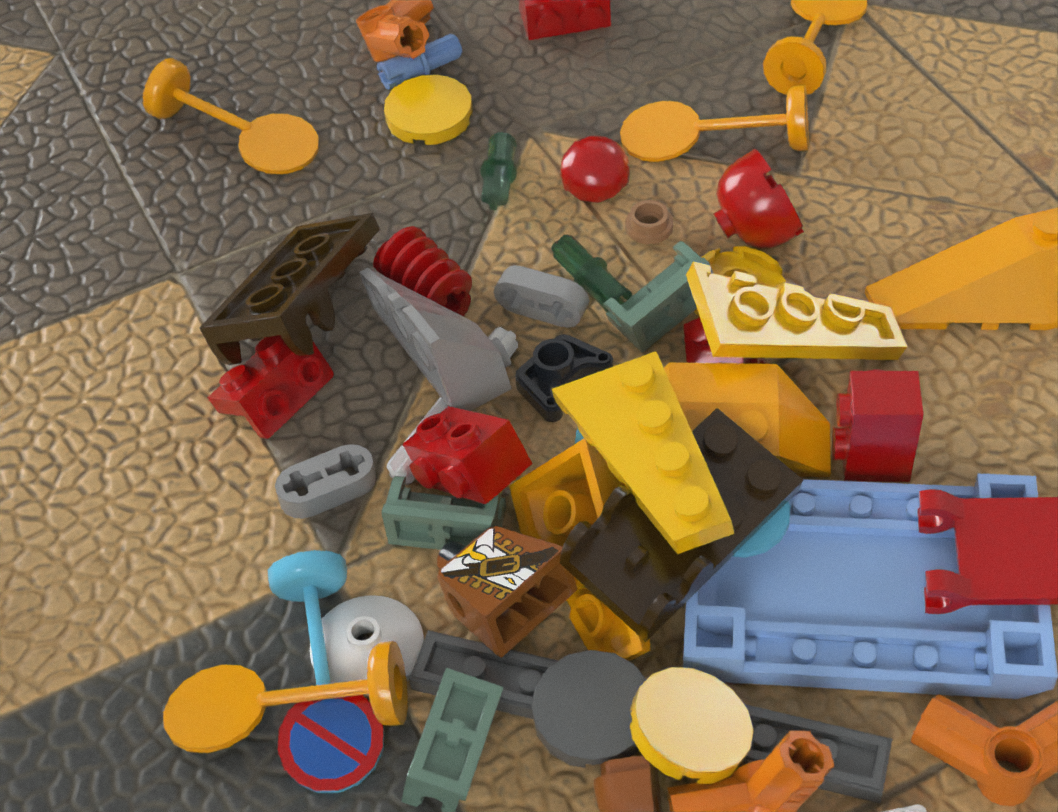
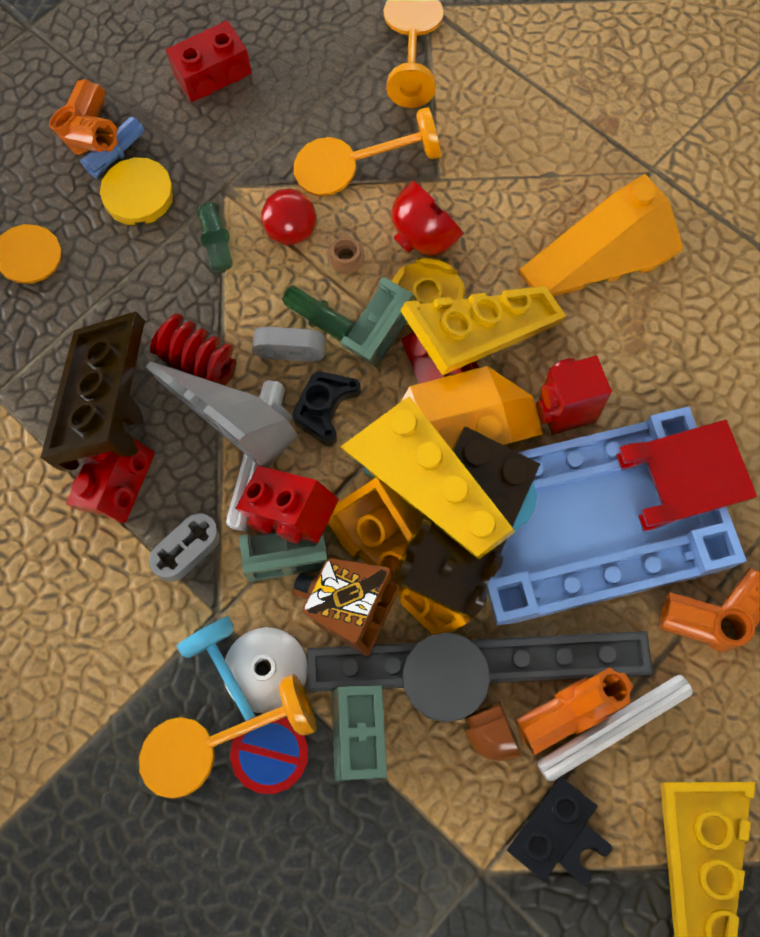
camera: 20 degrees left, 20 degrees up
(690, 725) = (519, 673): yellow tile -> none

